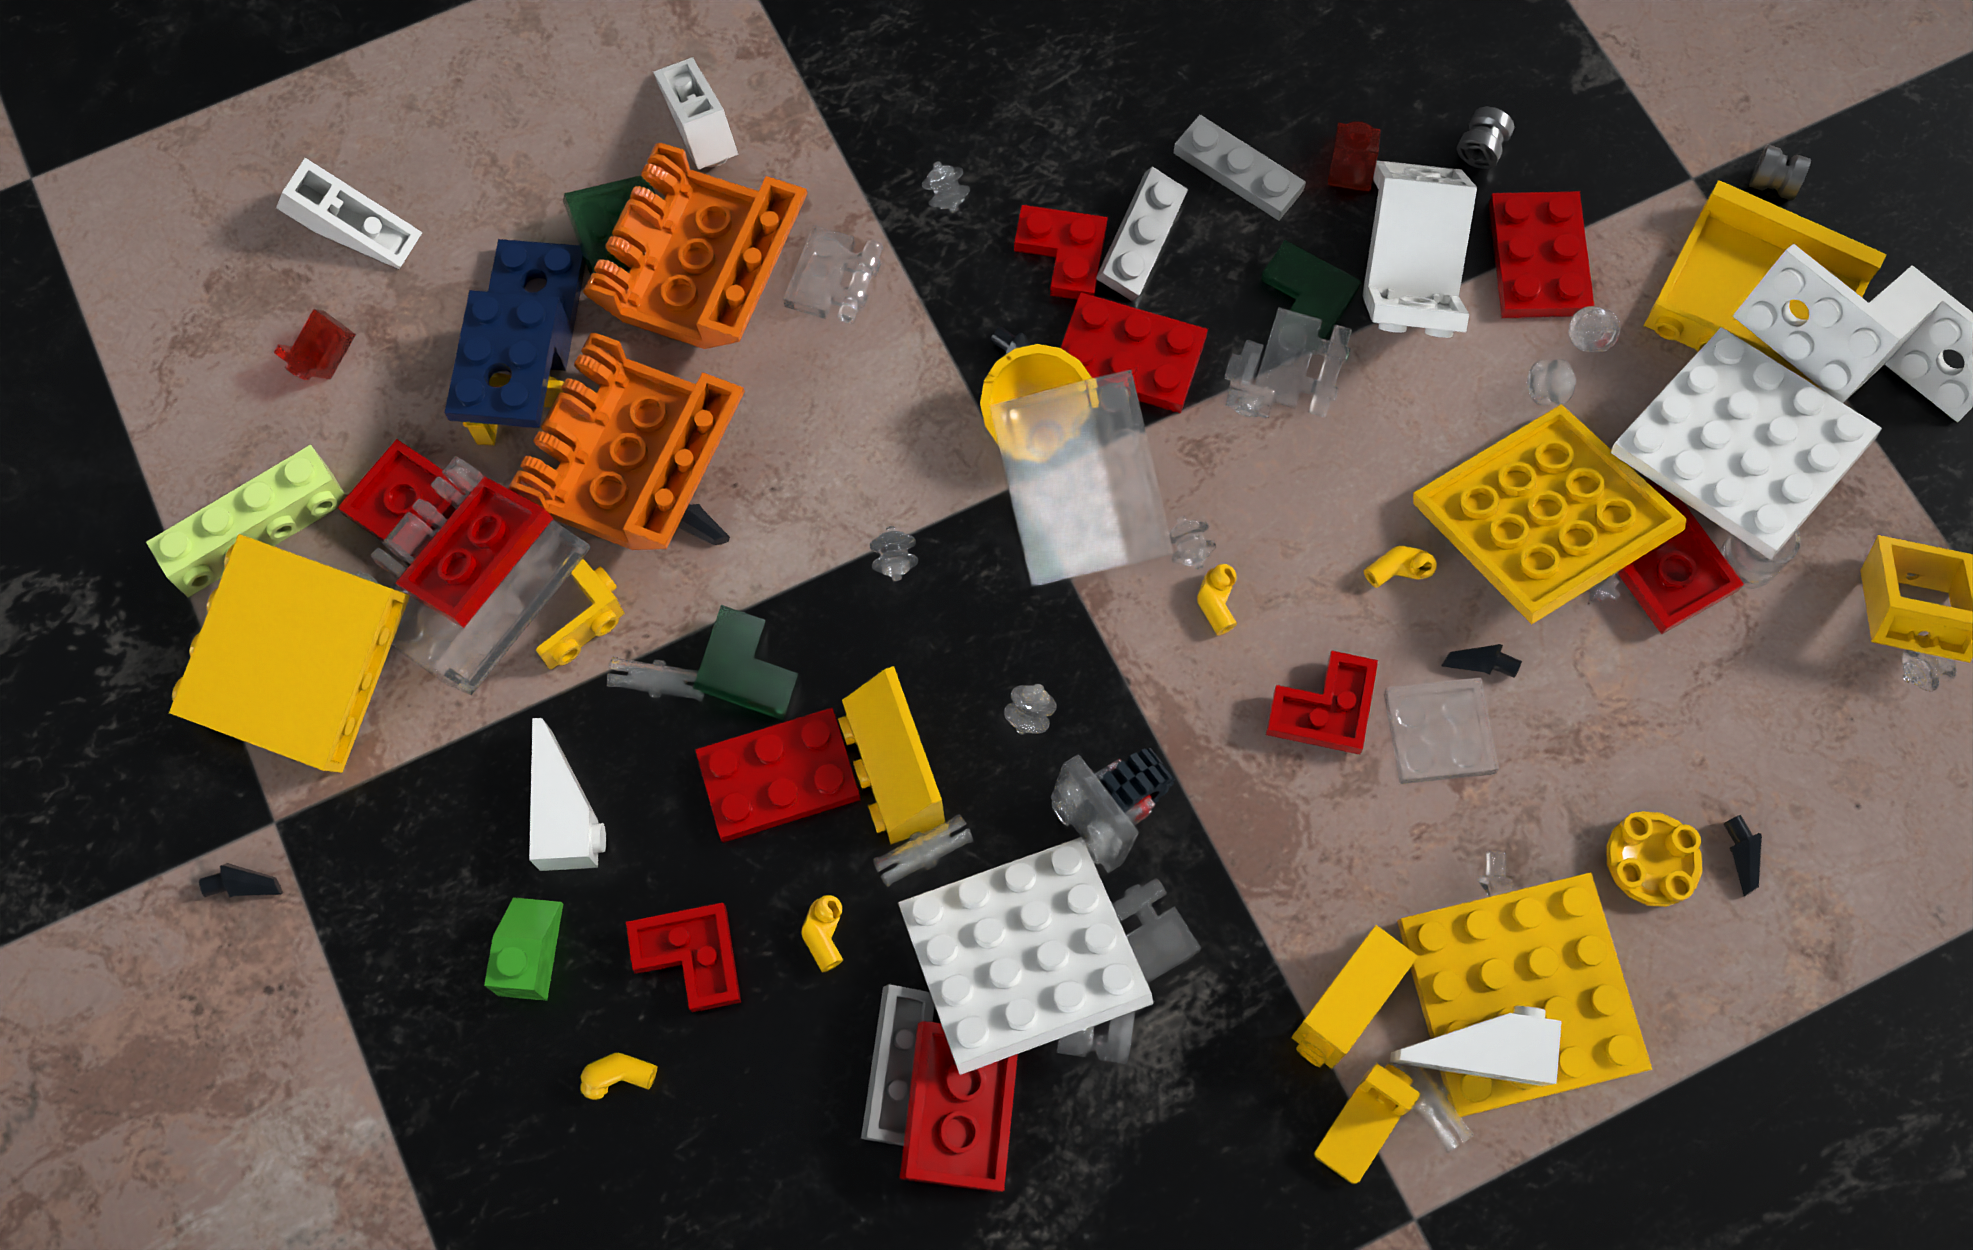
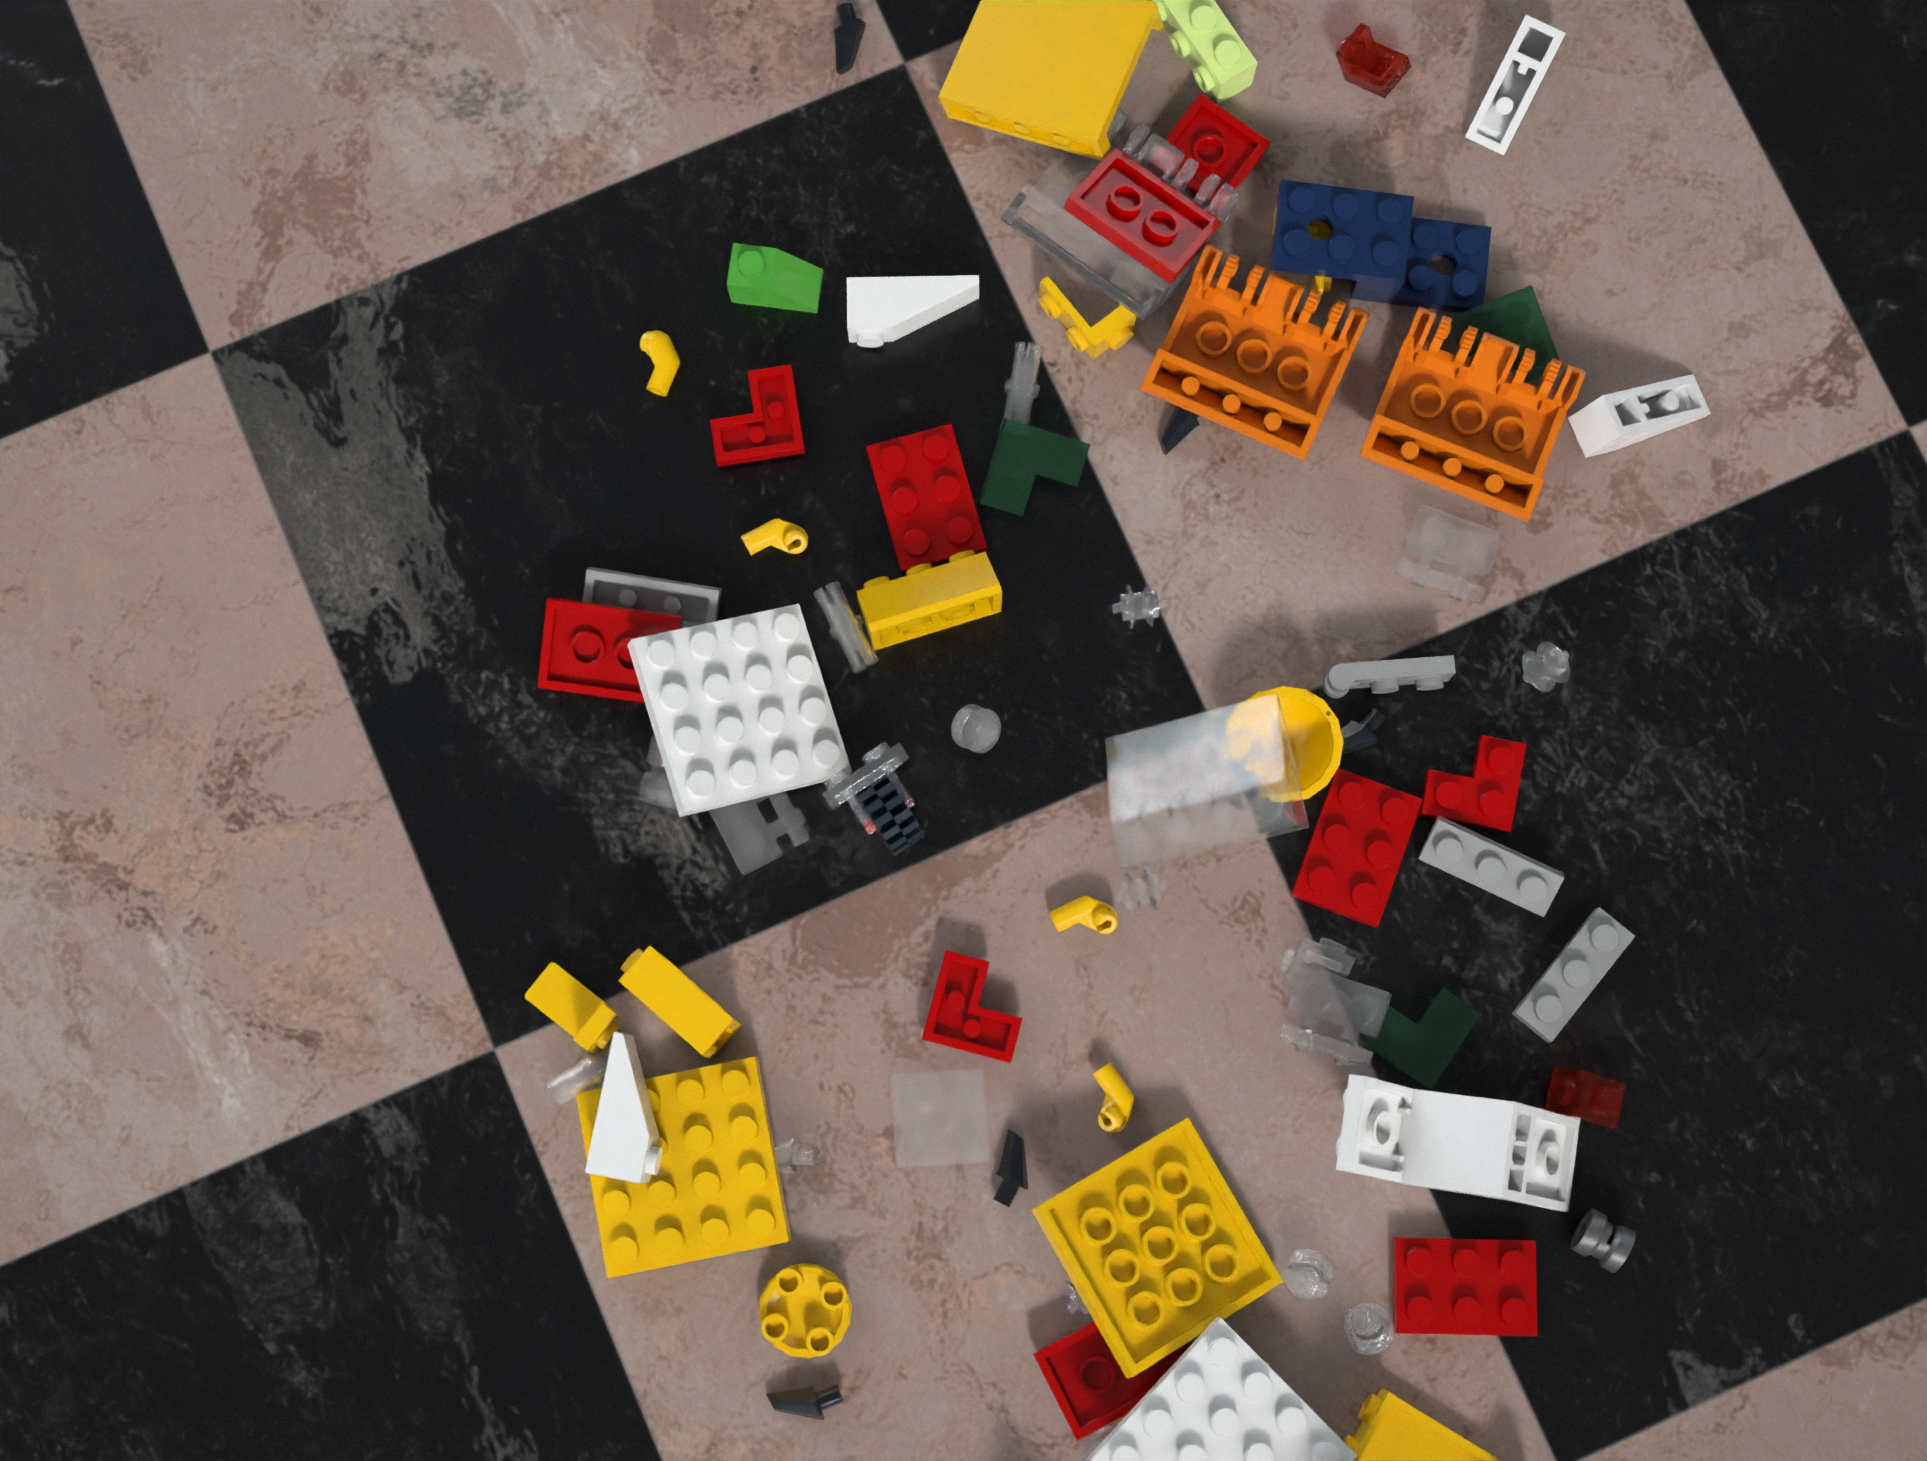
camera: 90 degrees right, 10 degrees up
(960, 324) = (1386, 675): none -> light grey plate

